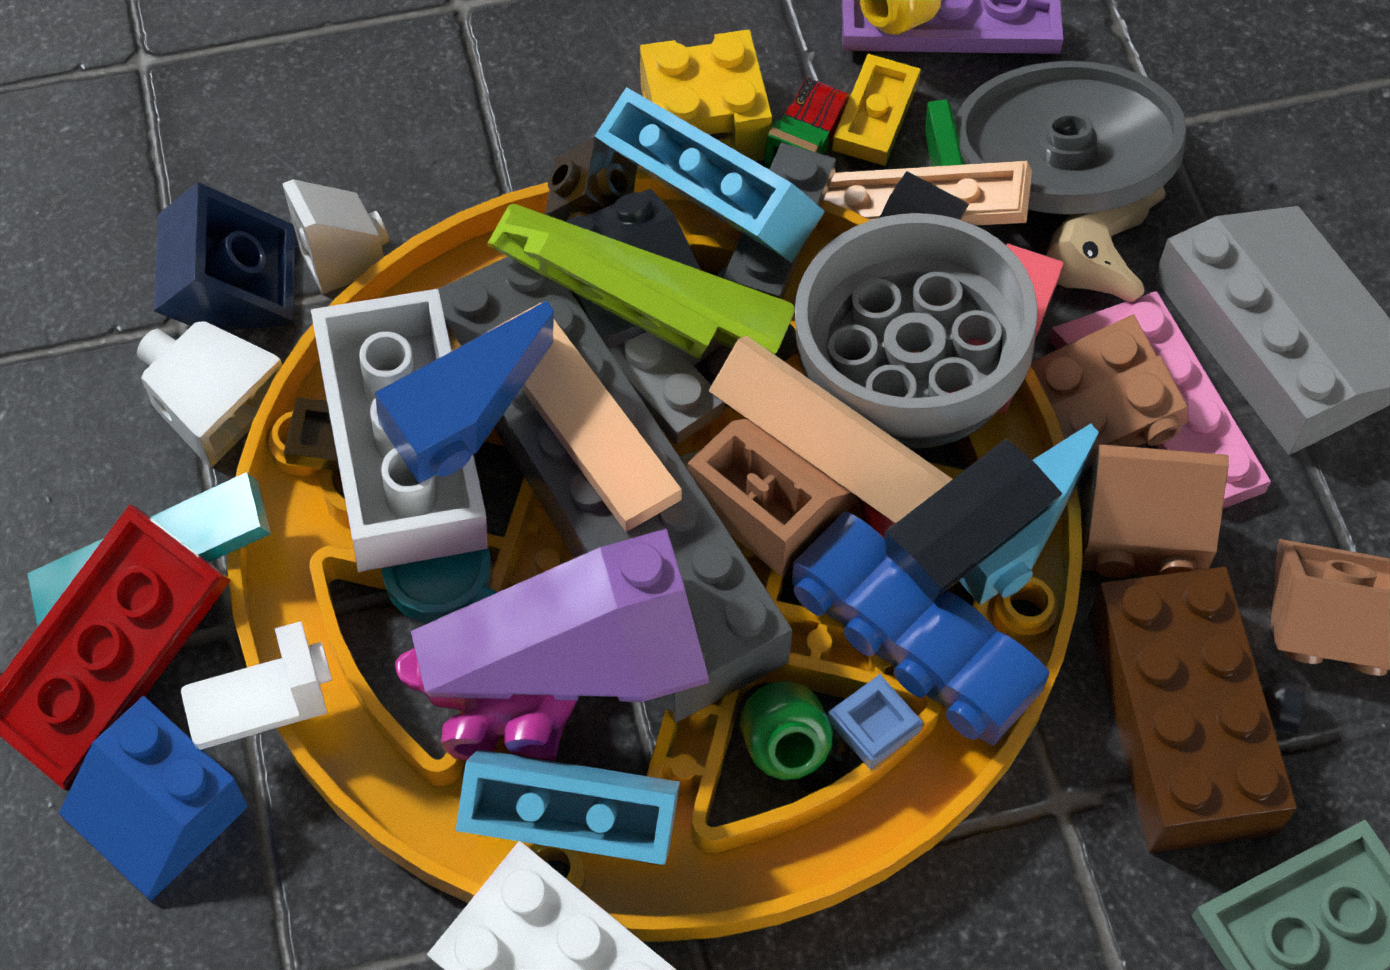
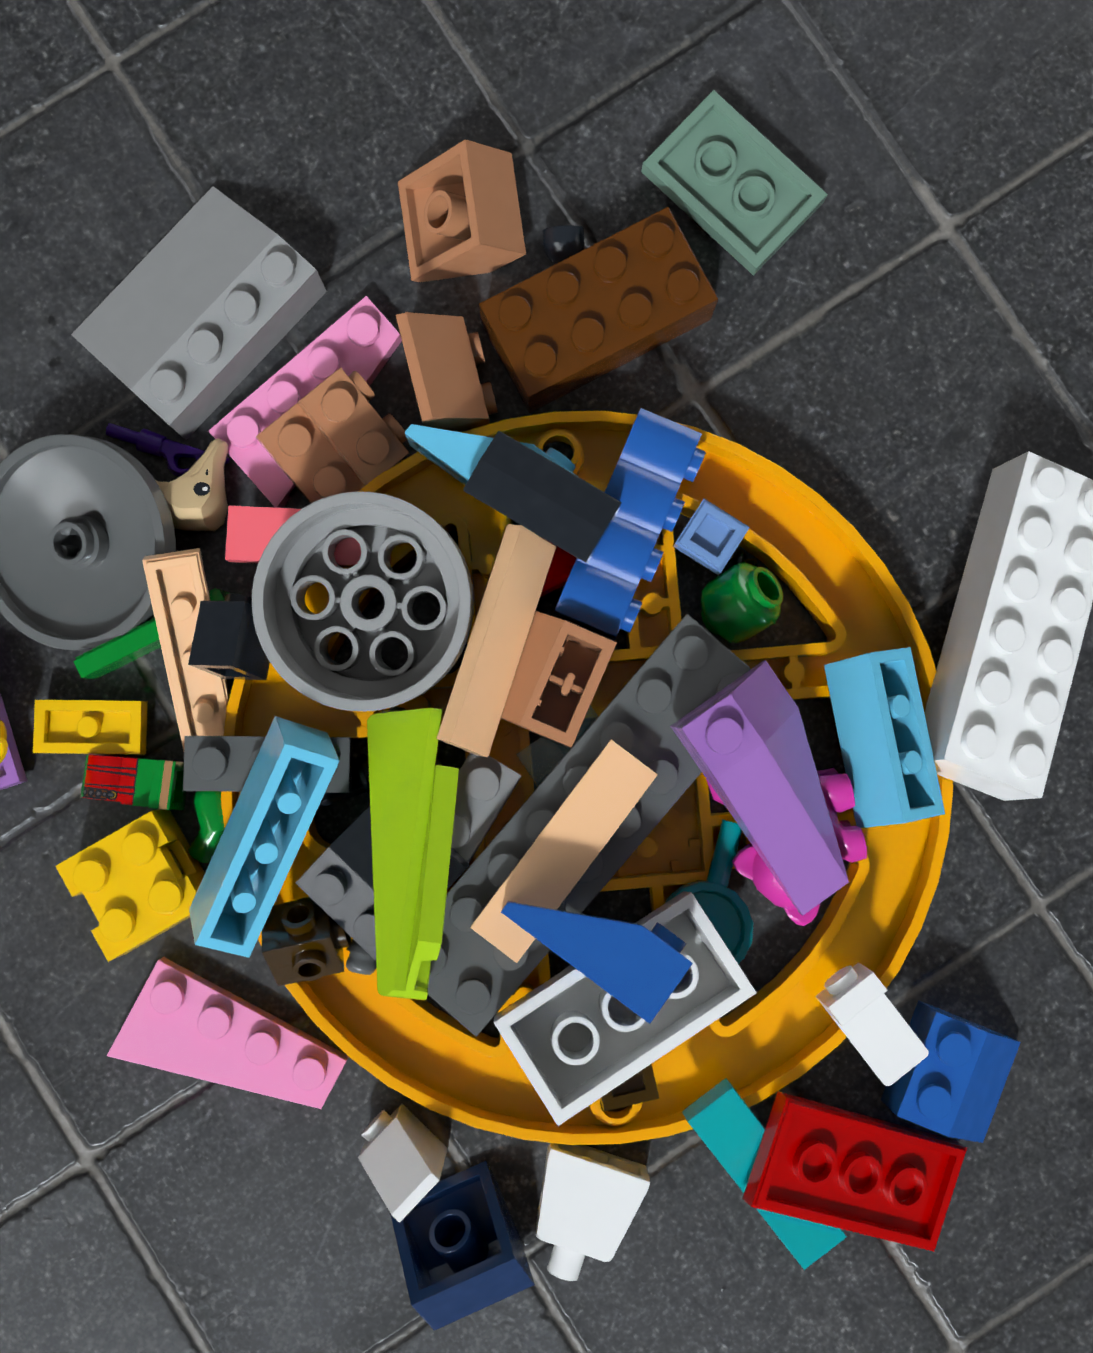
camera: 110 degrees left, 25 degrees up
(516, 141) = (220, 1038): none -> bright pink wing
(1151, 251) = (157, 445): none -> dark purple hand

